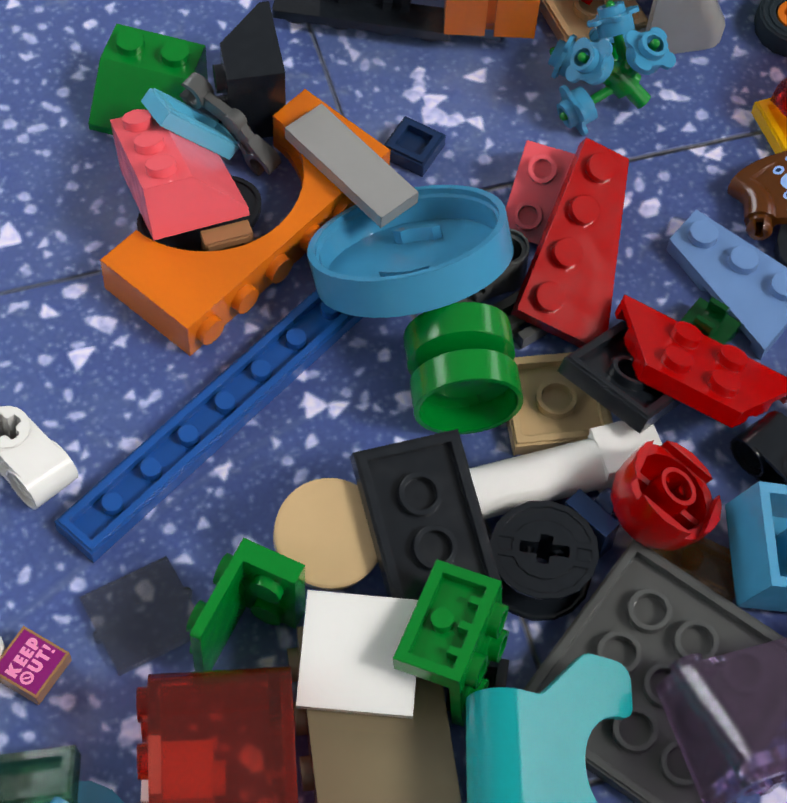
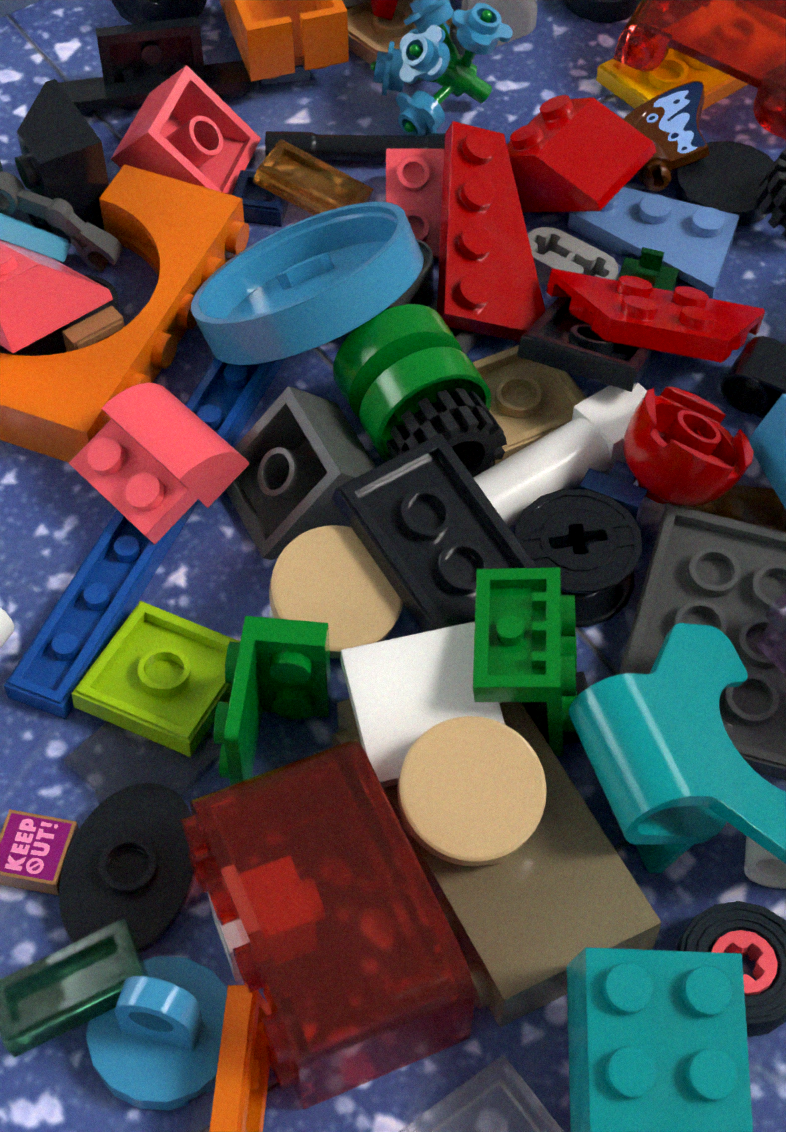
camera: 15 degrees left, 5 degrees down
(94, 701) = (128, 865): none -> black piece
(172, 553) = (158, 679): none -> lime tile
(235, 368) = (156, 459): none -> coral brick
(344, 409) = (296, 463): none -> dark grey slope
(351, 165) = (207, 220): light grey tile -> none
(364, 739) = (471, 791): none -> tan tile
(369, 77) = (188, 135): none -> coral slope
(459, 148) = (308, 180): none -> clear orange tile
(474, 111) = (352, 147): none -> black piece
(484, 422) = (461, 421): none -> black tyre
(653, 286) = (565, 252): none -> light grey beam
(688, 192) = (575, 156): none -> red slope

